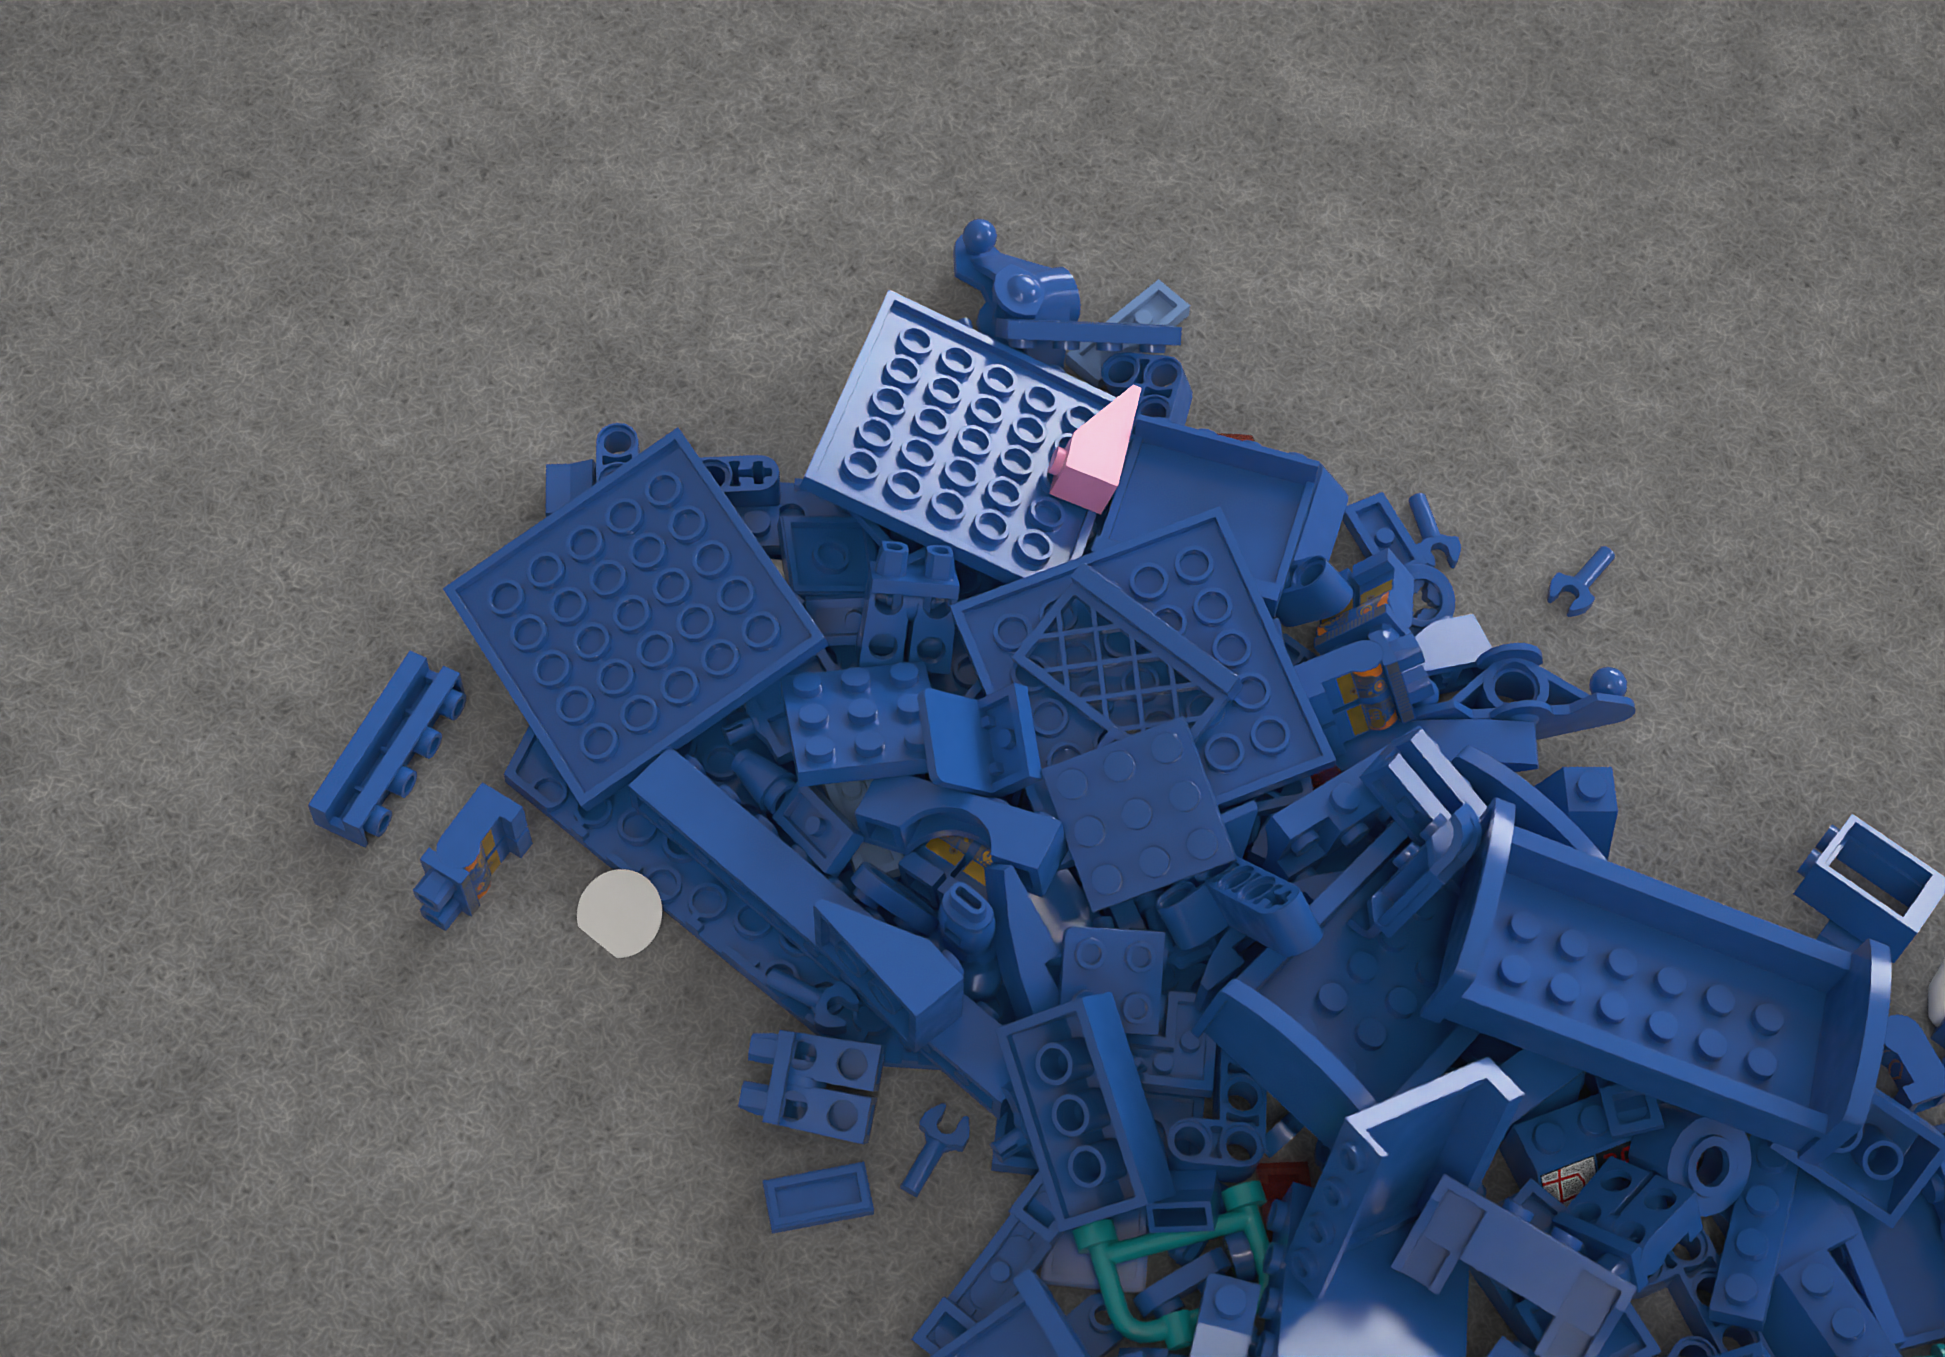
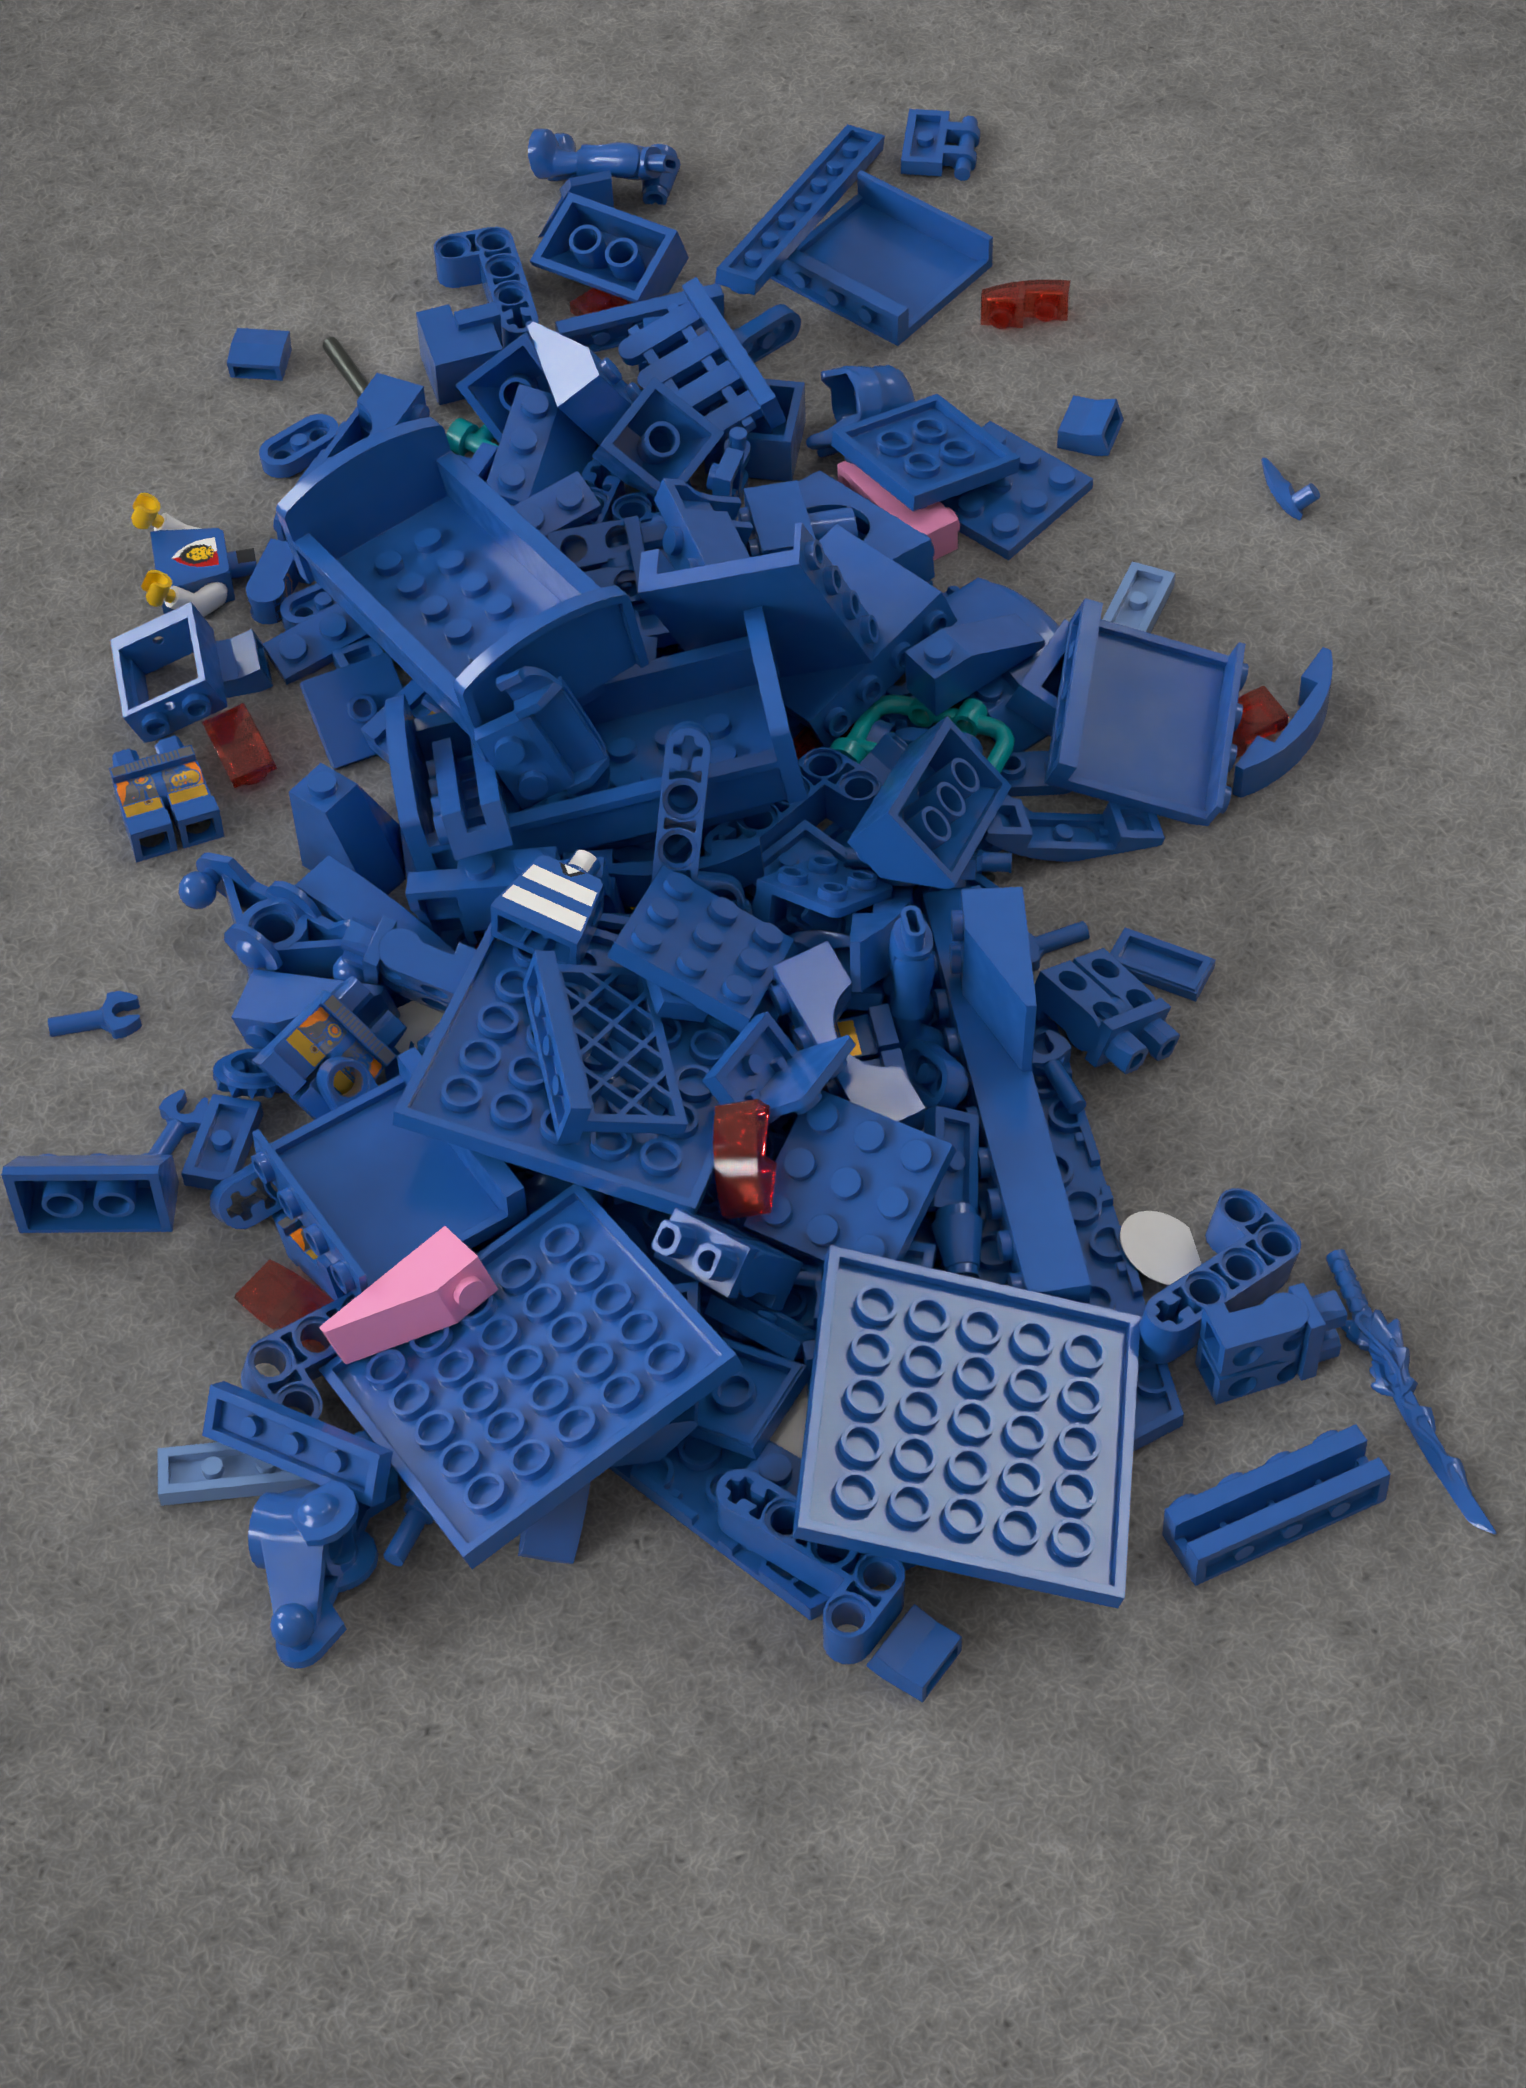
camera: 135 degrees left, 10 degrees down
(367, 923) = (1392, 1378): none -> blue sword
(550, 880) = (1250, 1265): none -> blue beam
(958, 669) = (741, 1170): none -> clear red slope
(1274, 752) = (552, 907): none -> blue torso
(1425, 431) = (92, 1193): none -> blue slope
(1741, 869) = (239, 746): none -> clear red slope
(1746, 782) = (163, 784): none -> blue hips

